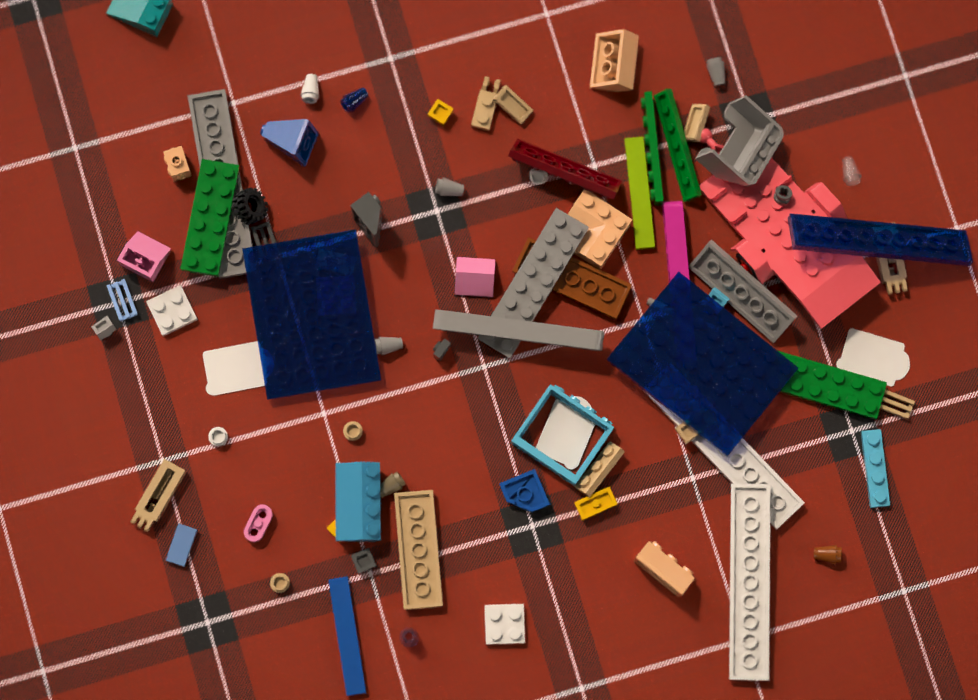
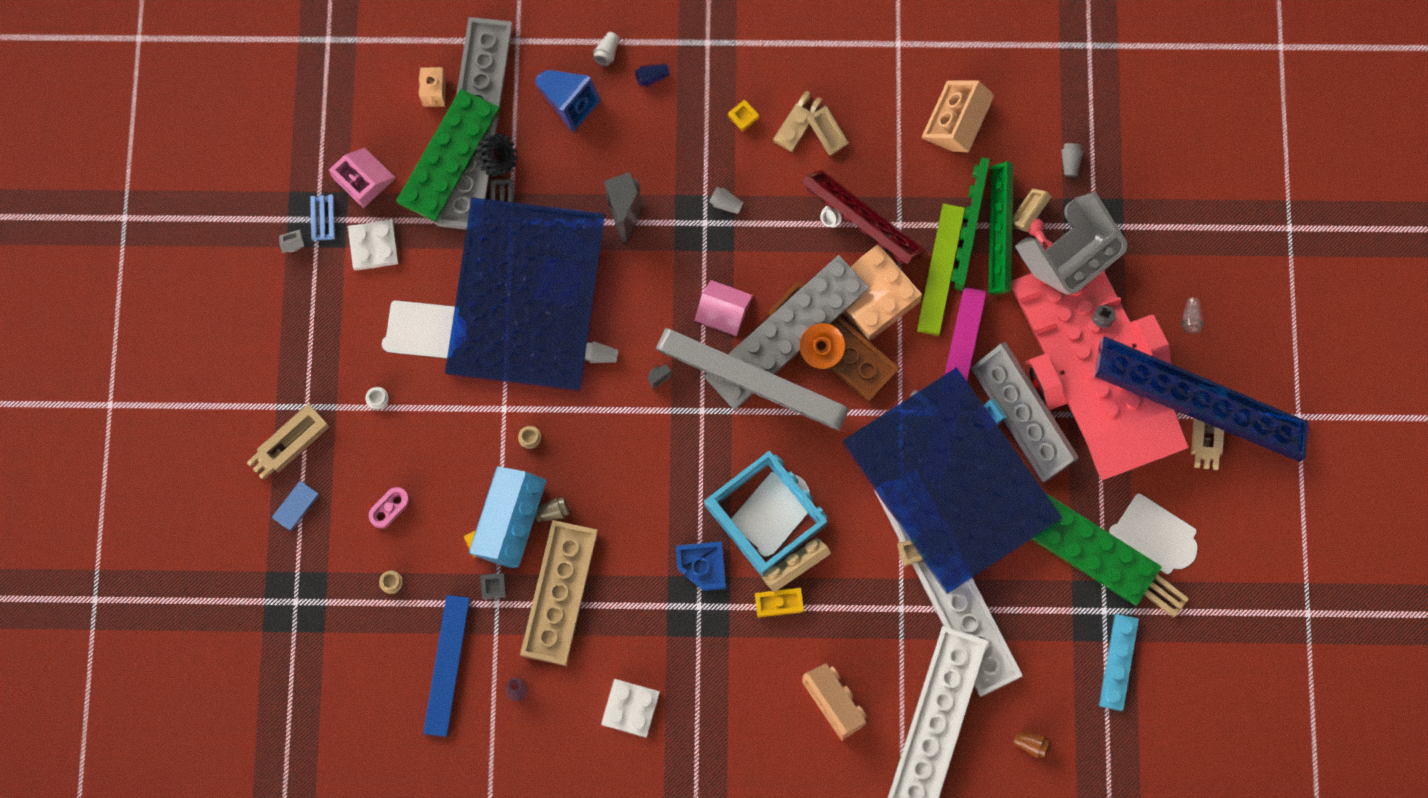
camera: 25 degrees right, 5 degrees down
(574, 289) = (833, 343): none -> orange dish

